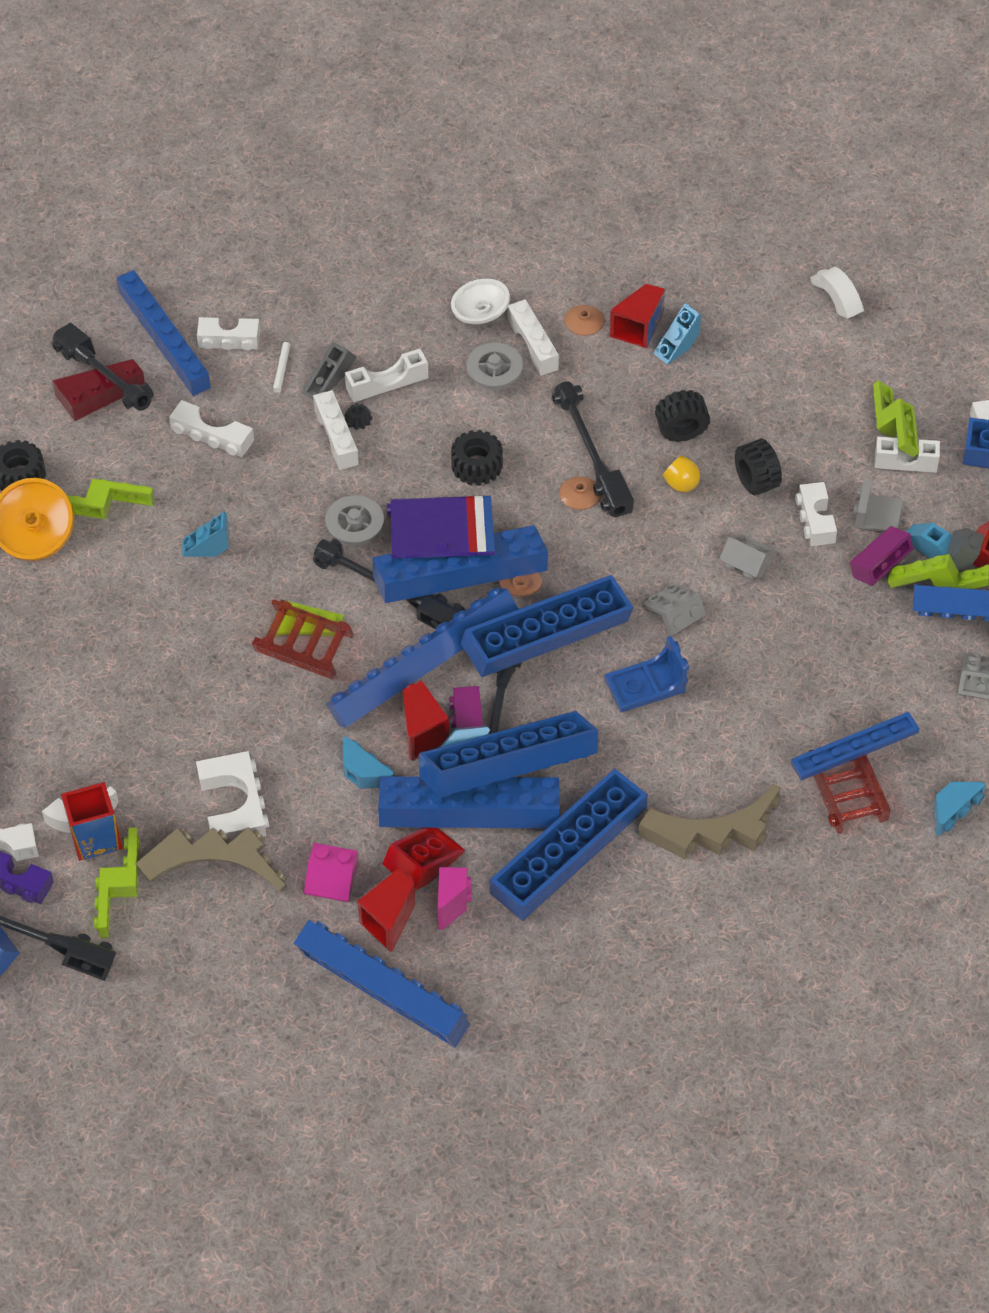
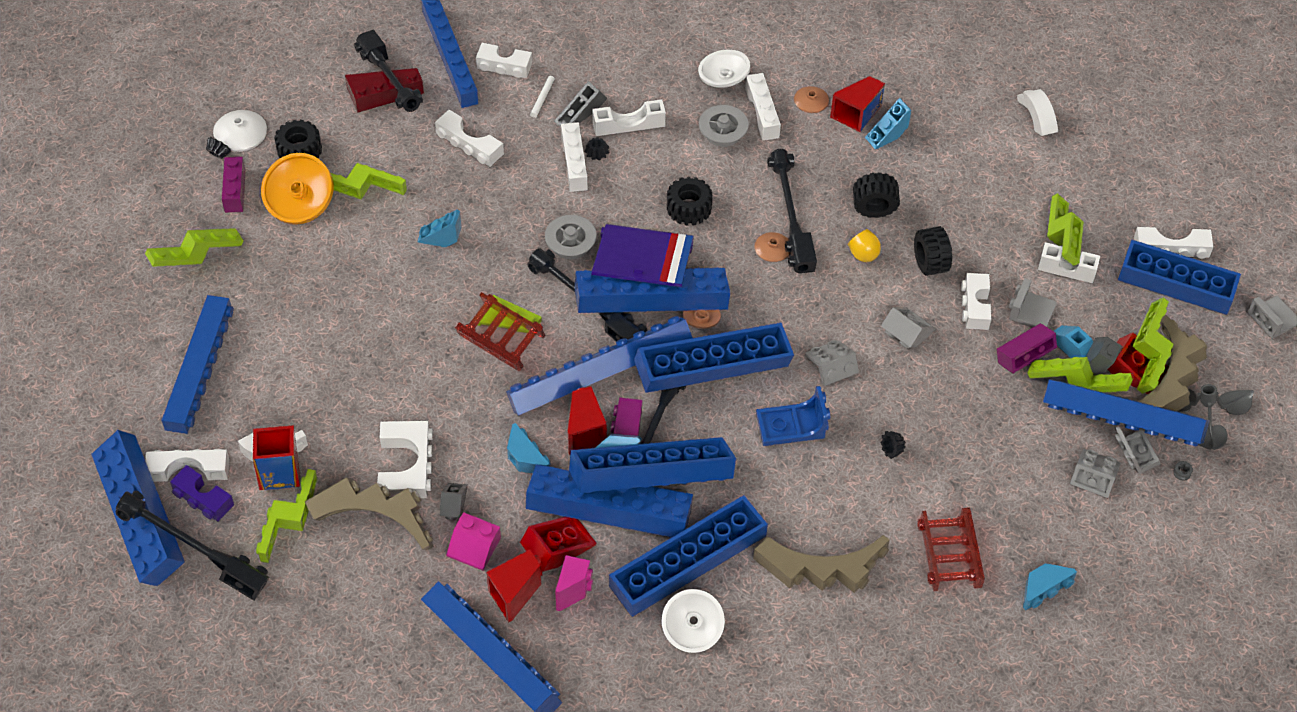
camera: 10 degrees right, 0 degrees up
(297, 833) = (453, 500): none -> dark grey slope
(608, 909) = (691, 636): none -> white dish
(760, 685) = (892, 444): none -> black piece
(854, 746) = (964, 514): blue plate -> none

